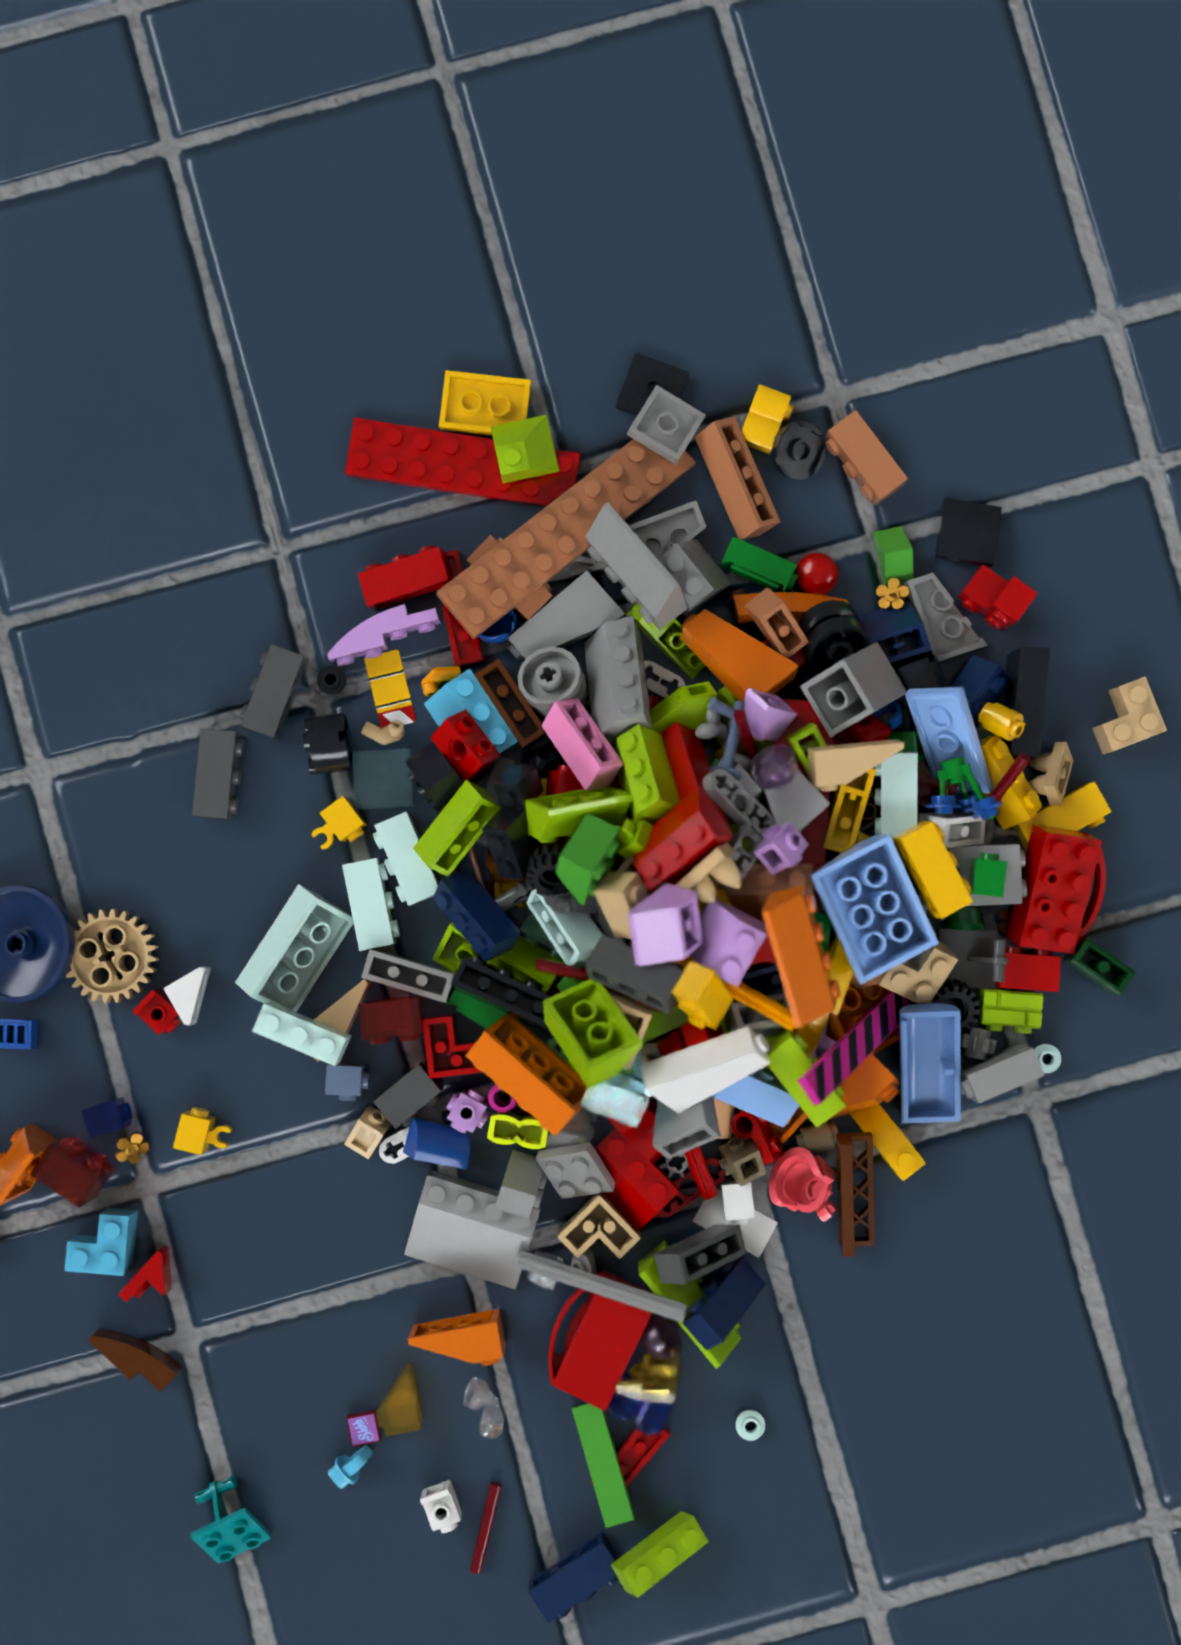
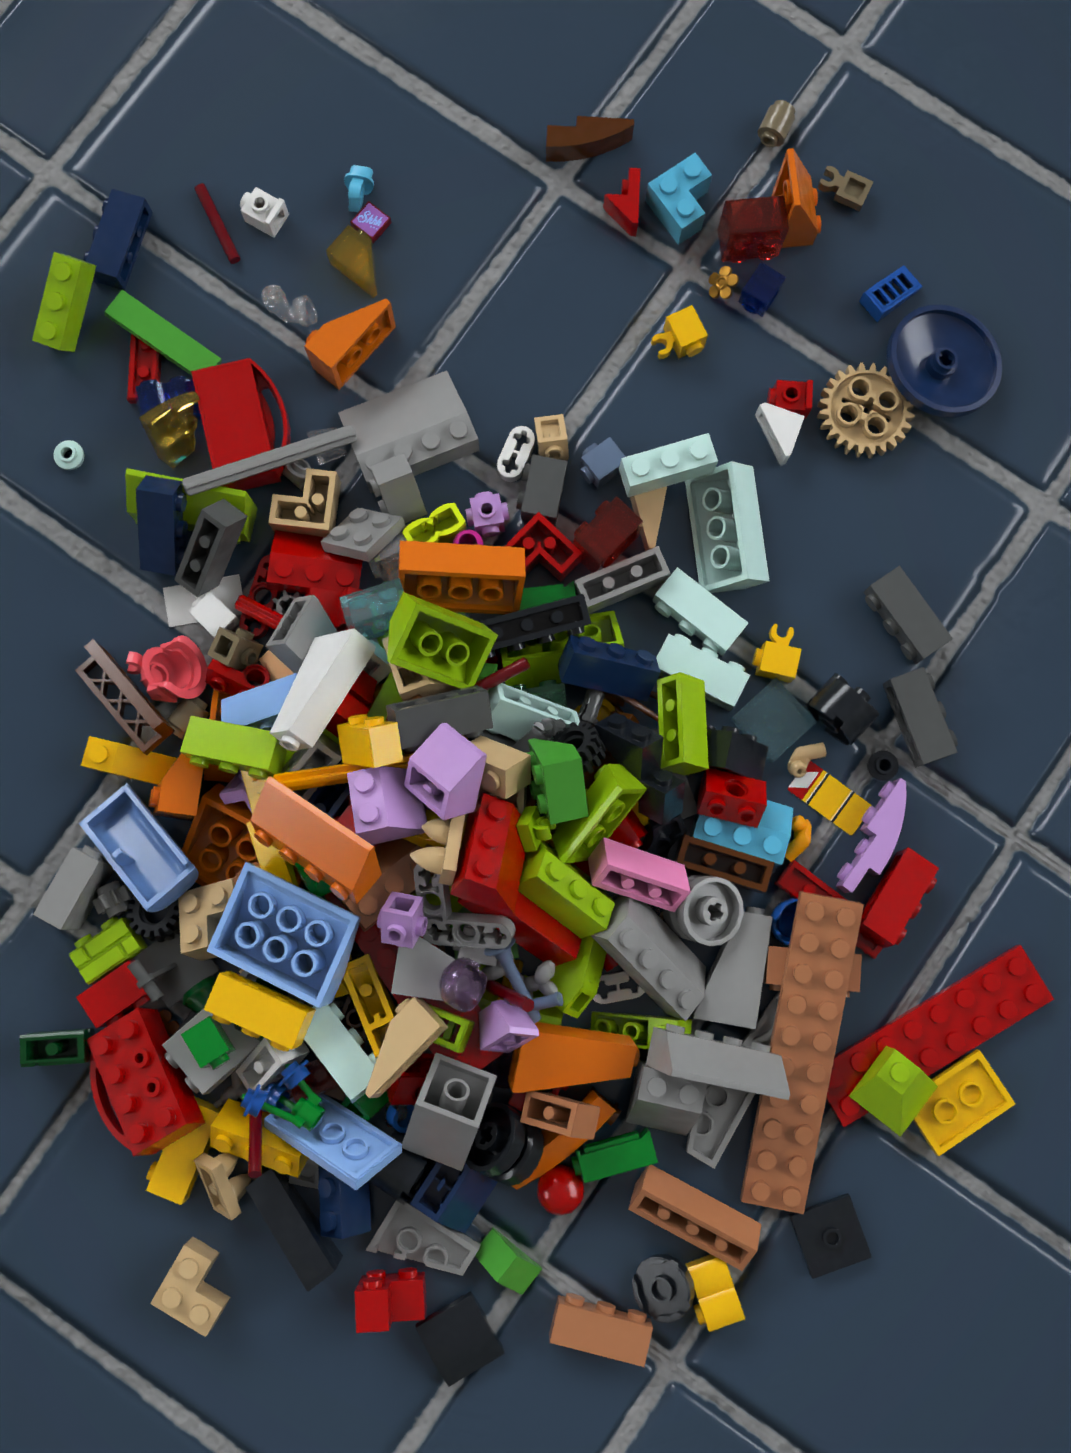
camera: 135 degrees right, 5 degrees down
(231, 1532) = (410, 67): teal plate -> none
(437, 1144) = (489, 468): blue brick -> none
(661, 1338) = (189, 460): hair -> none
(666, 424) = (794, 1213): light grey plate -> none
(852, 1048) = (212, 805): tile -> none
(892, 594) = (481, 1226): pearl gold plant -> none
(1001, 721) = (300, 1191): yellow brick -> none
(1055, 1062) = (53, 940): light aqua plate -> none

